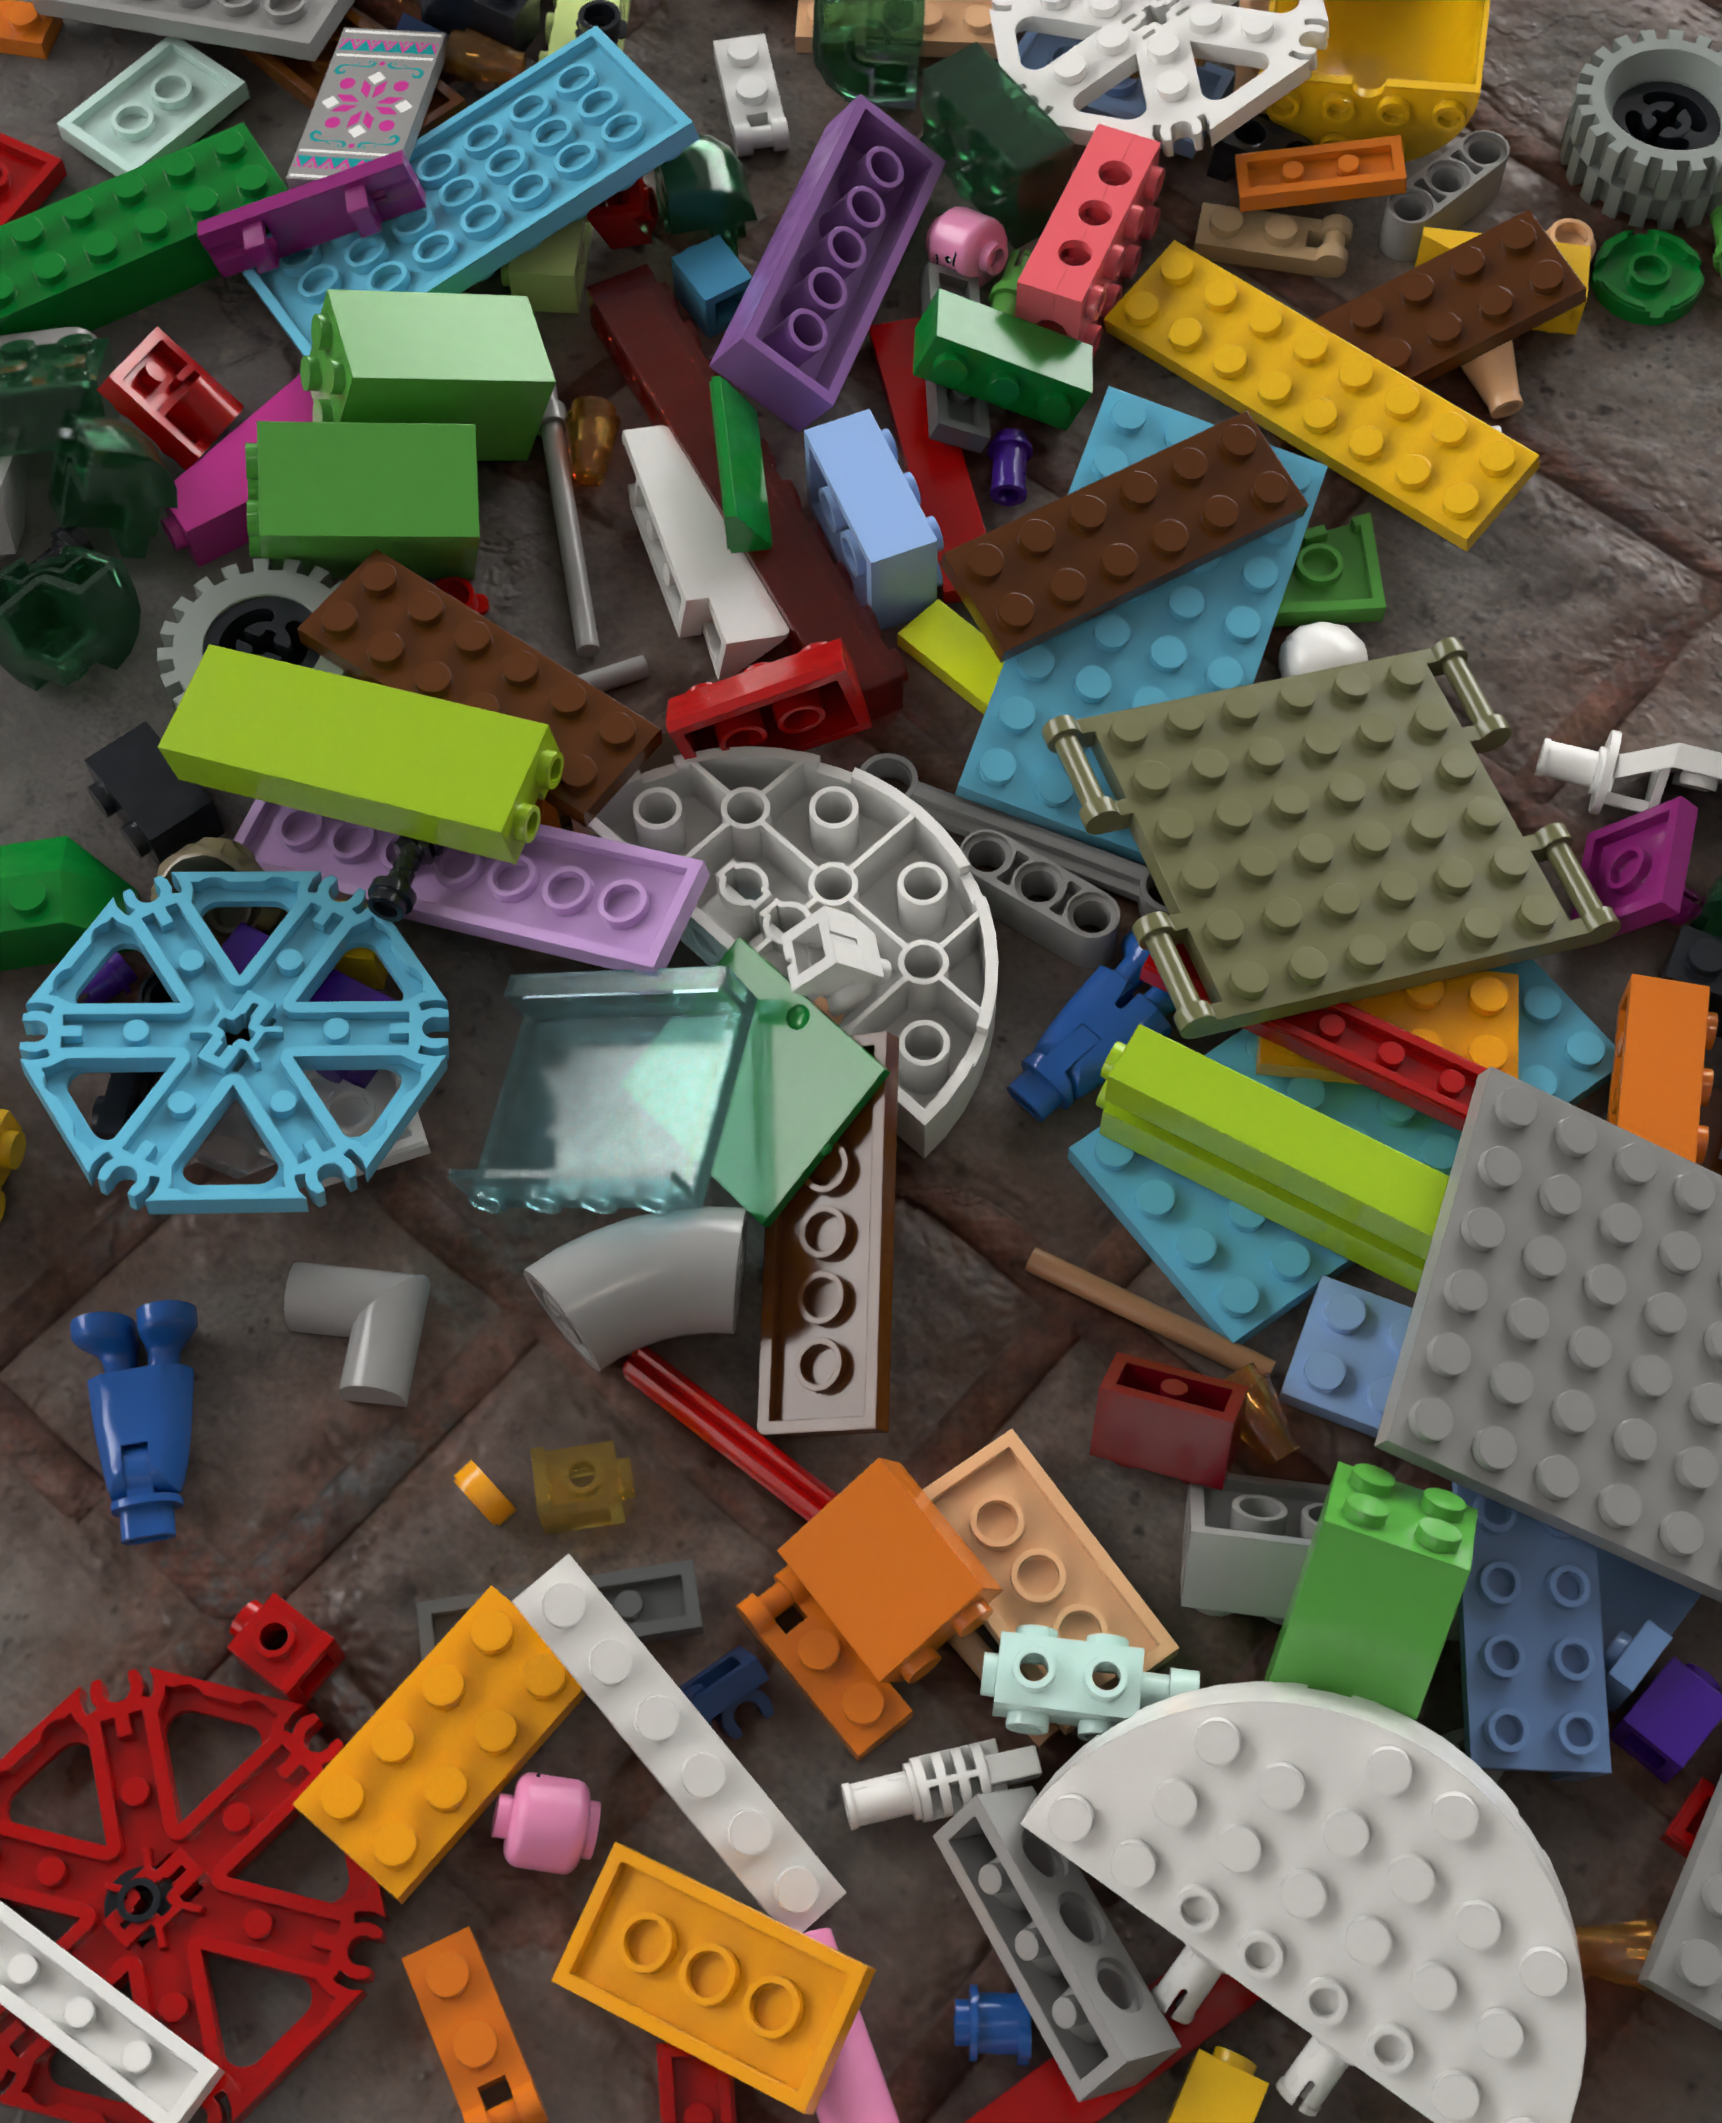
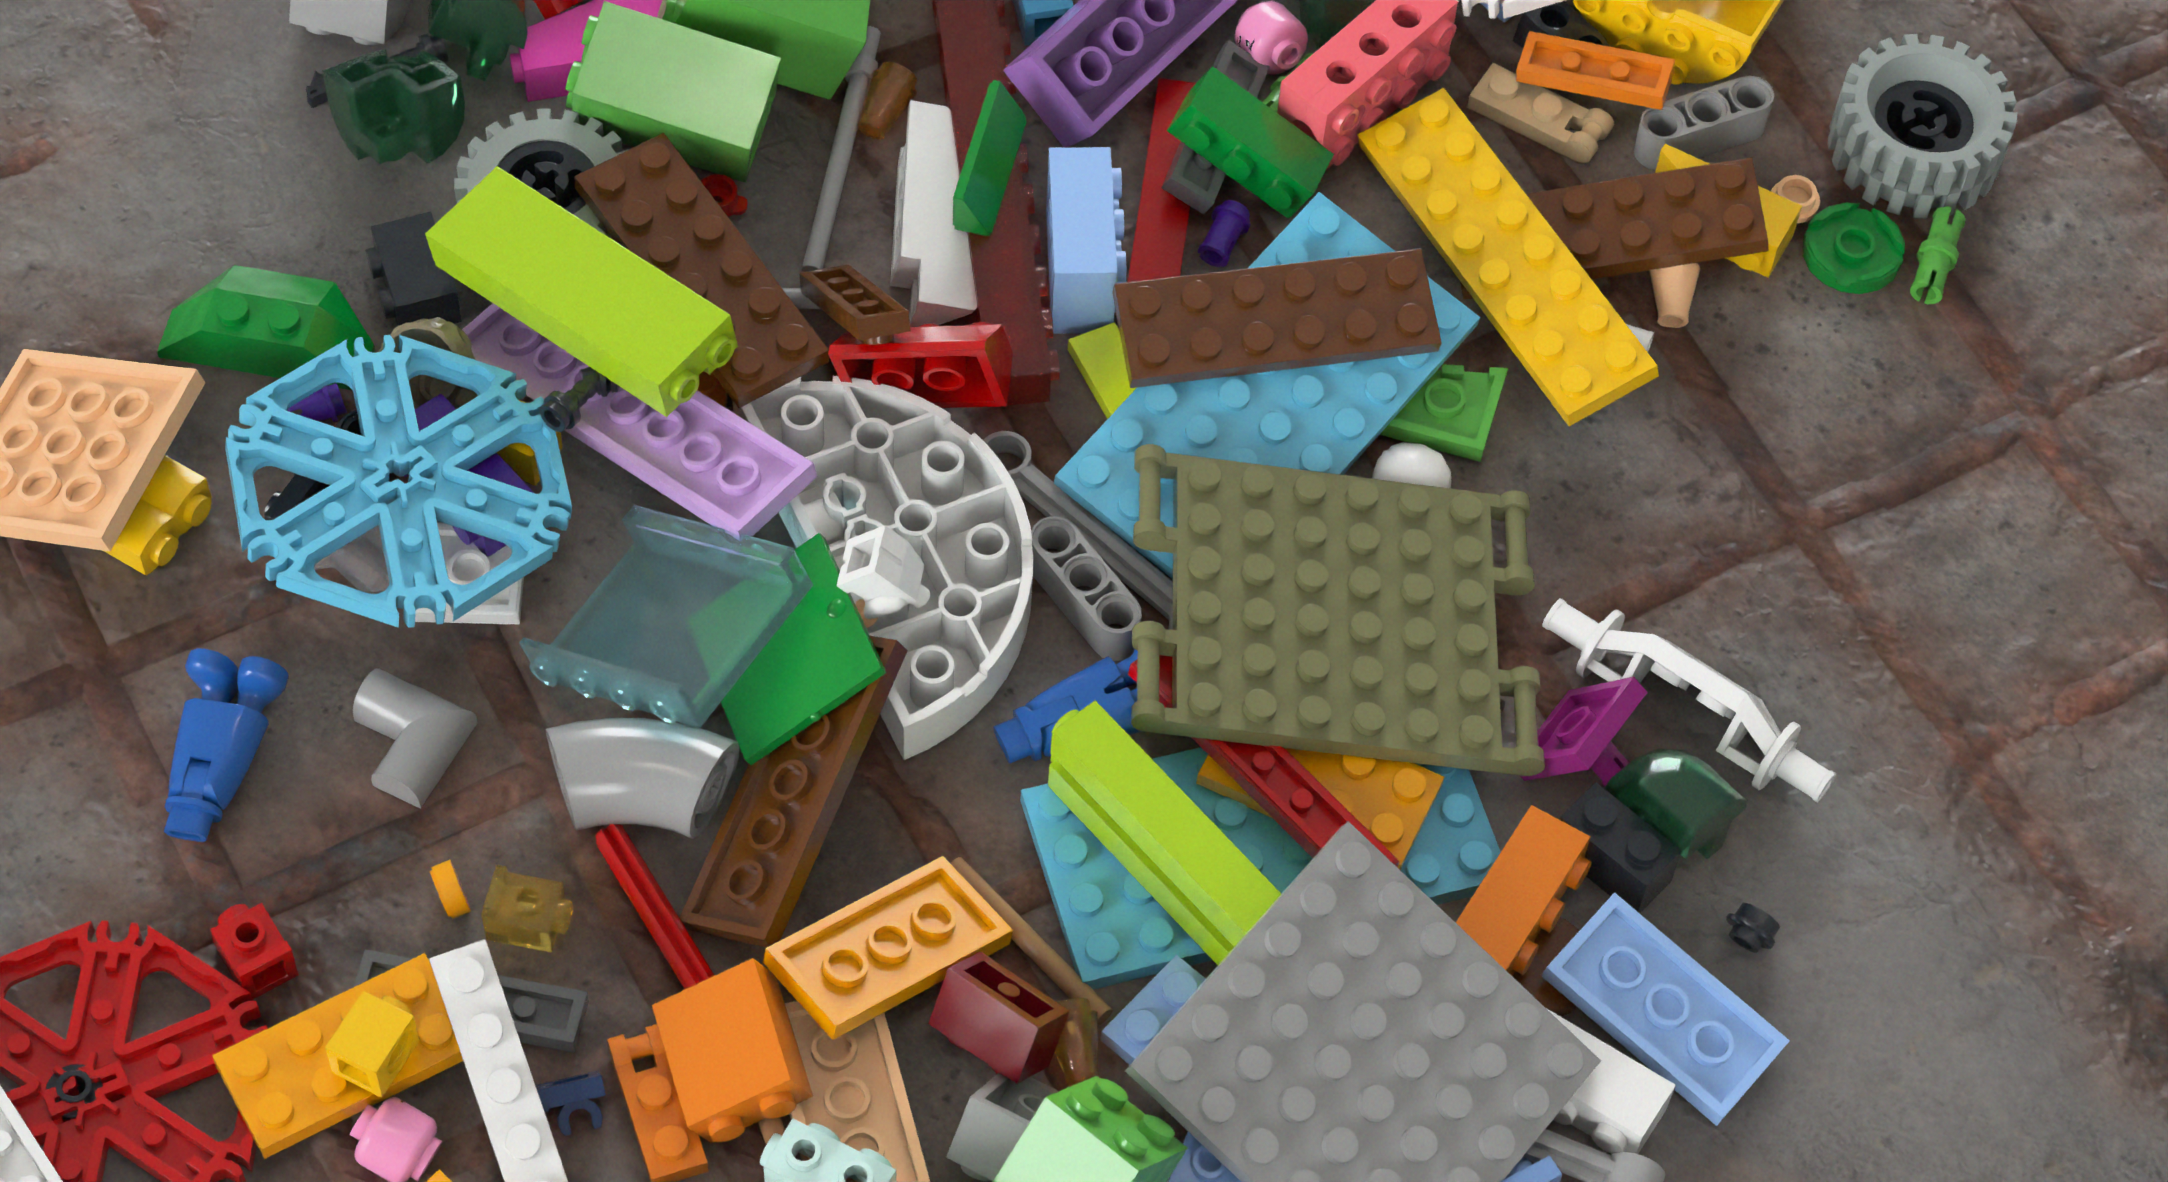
camera: 15 degrees right, 5 degrees down
(483, 1723) = (373, 1042): none -> yellow brick
(669, 668) = (855, 303): none -> reddish brown plate
(1009, 1385) = (886, 947): none -> light orange plate

